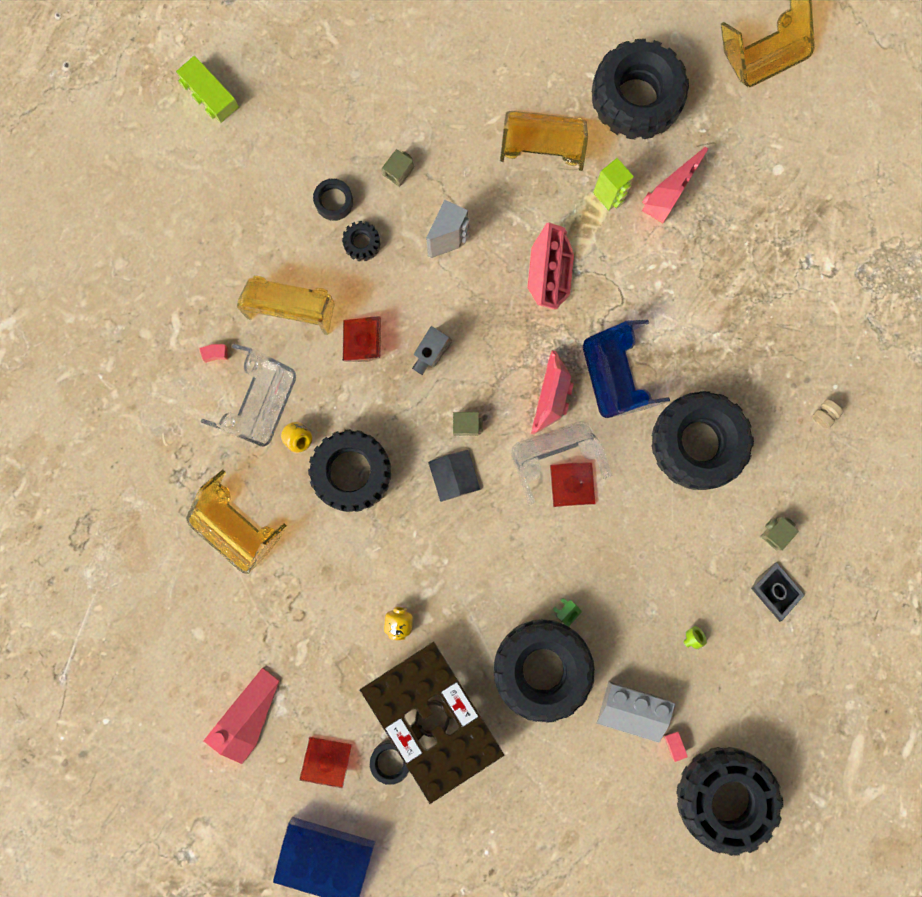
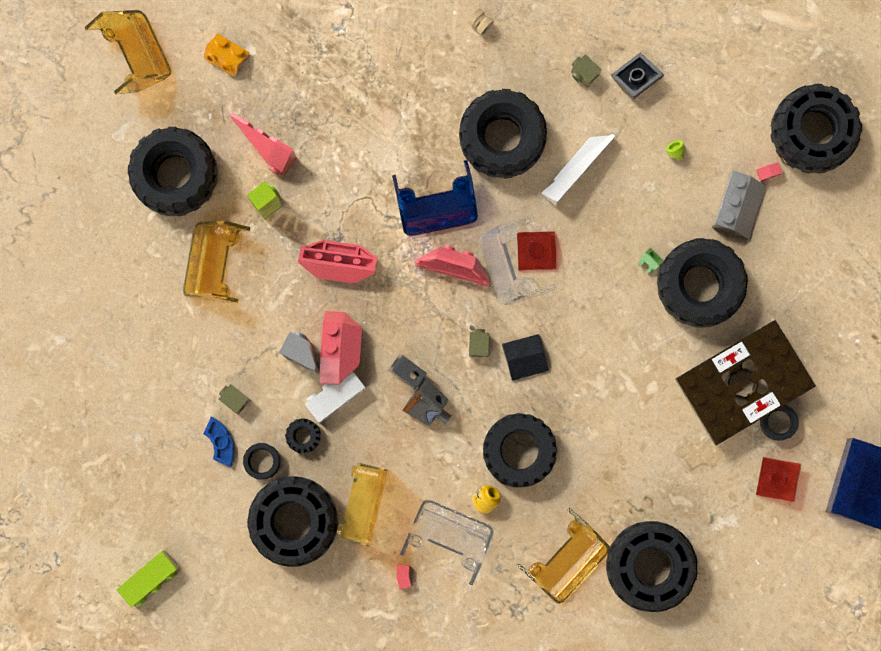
camera: 85 degrees left, 0 degrees up
(241, 725) = (746, 556): coral wedge -> none
(257, 612) = (621, 566): none -> black tyre
(288, 252) = (322, 528): none -> black tyre
(353, 158) = (221, 441): none -> blue tile
(362, 339) = (396, 437): clear red slope -> none
(397, 370) = (428, 404): none -> dark grey torso
(398, 623) = (657, 411): yellow head -> none
(405, 272) = (334, 397): none -> white brick
(456, 271) = (339, 347): none -> coral wedge
(668, 526) = (576, 167): none -> white wedge
(771, 141) = (225, 54): none -> light orange bracket

